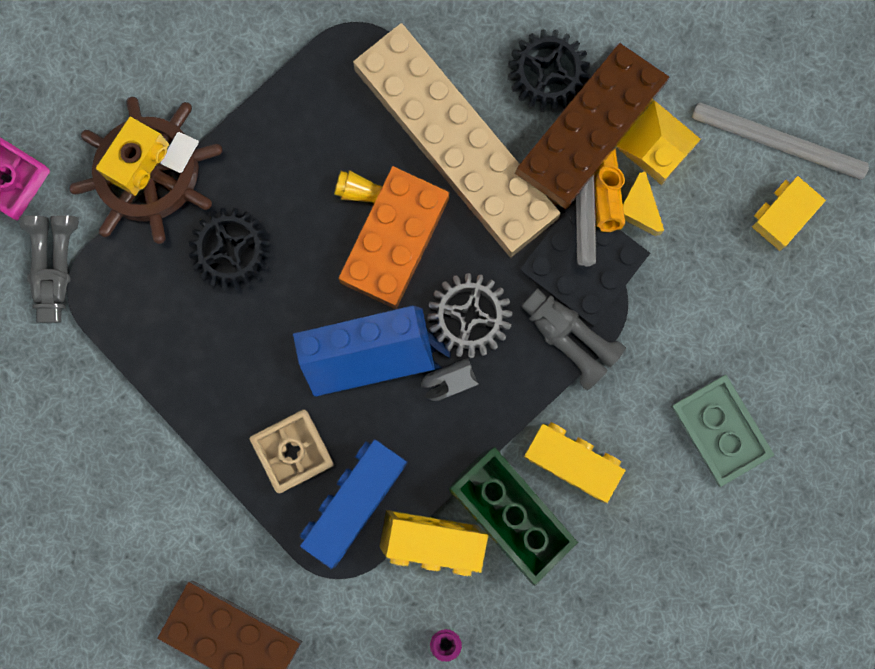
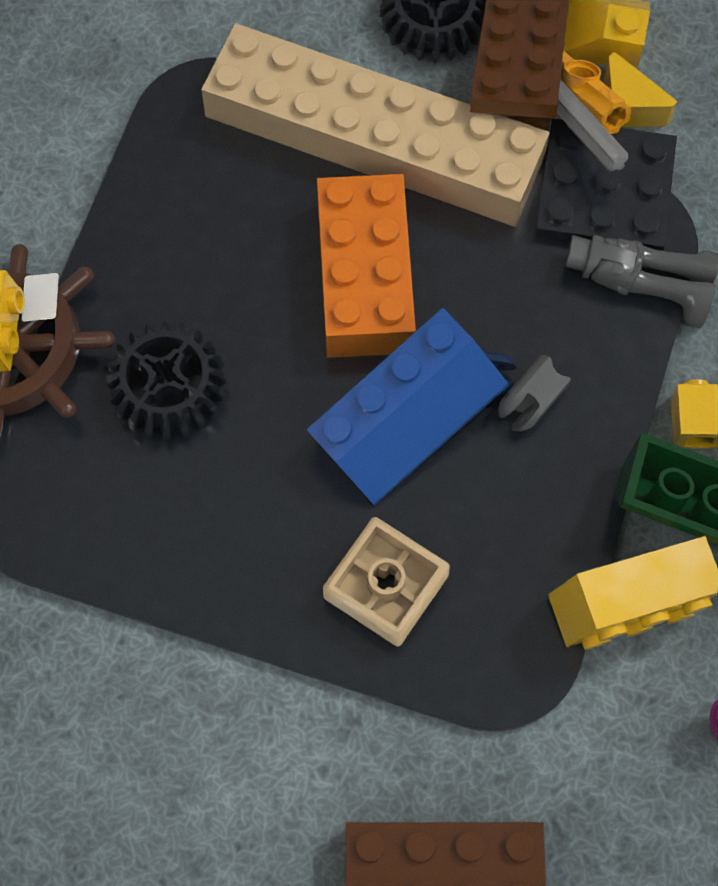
camera: 30 degrees left, 15 degrees down
(353, 504) = (509, 597): blue brick -> none
(356, 188) = (283, 235): yellow cone -> none
(455, 312) = (538, 295): light grey gear -> none

